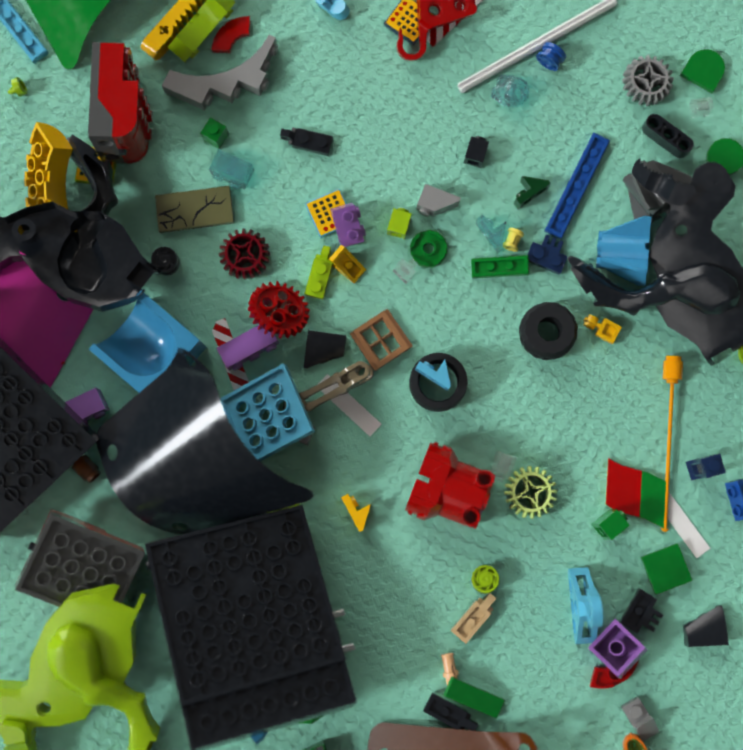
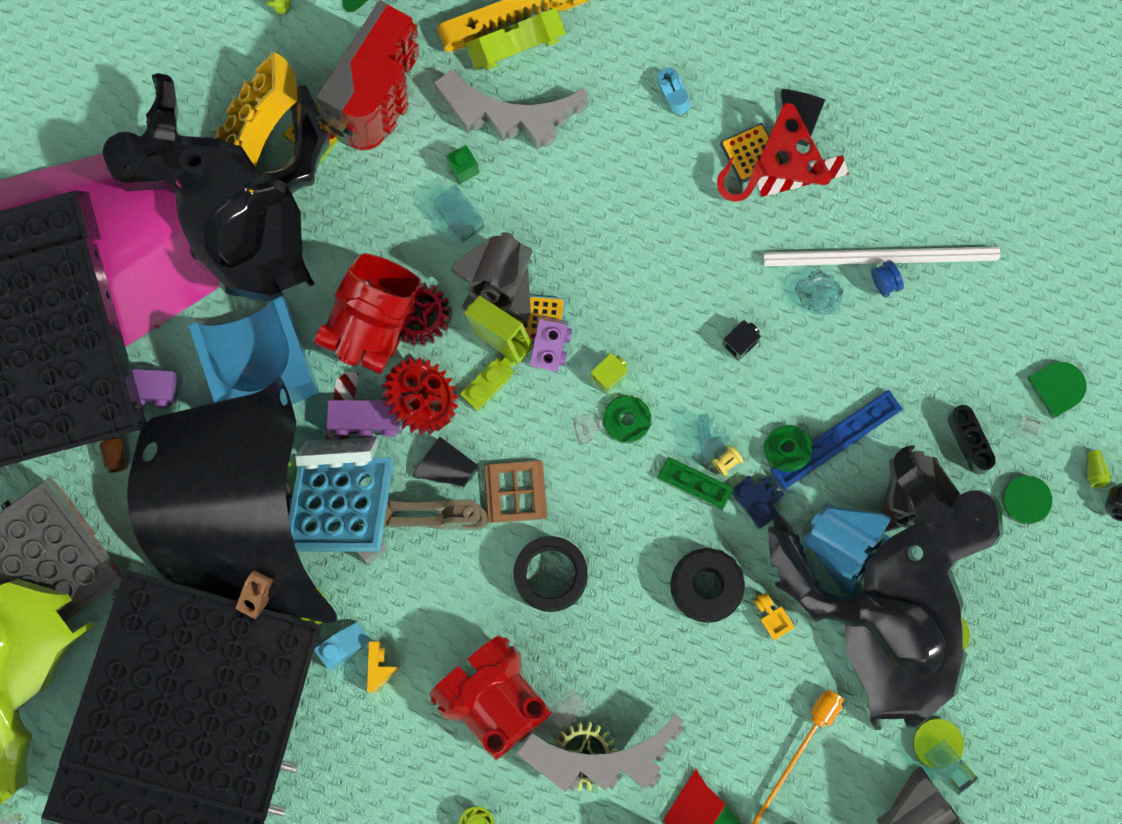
camera: 30 degrees right, 5 degrees down
(166, 260) = (328, 274): black wheel -> none
(194, 209) = (393, 235): olive tile -> none
(211, 270) = (369, 312): none -> red piece
(230, 33) = (543, 64): red tile -> none
(244, 380) = (336, 452): none -> light aqua plate
(246, 507) = (256, 591): none -> medium nougat leg
(285, 197) = (498, 274): none -> dark grey brick
(307, 233) = (498, 329): none -> lime brick
(308, 140) = (561, 227): black hinge -> none
(324, 510) = (342, 646): none -> medium azure slope
(347, 264) = (525, 387): yellow slope -> none
(353, 410) = (441, 554): white sticker -> none
(436, 201) = (664, 371): light grey slope -> none
(440, 377) = (552, 567): medium azure slope -> none
(533, 188) = (784, 416): dark green slope -> none
(552, 218) = (792, 460): none -> green tile
(570, 476) = (603, 769): none -> light grey arch
(660, 77) = (992, 367): light grey gear -> none

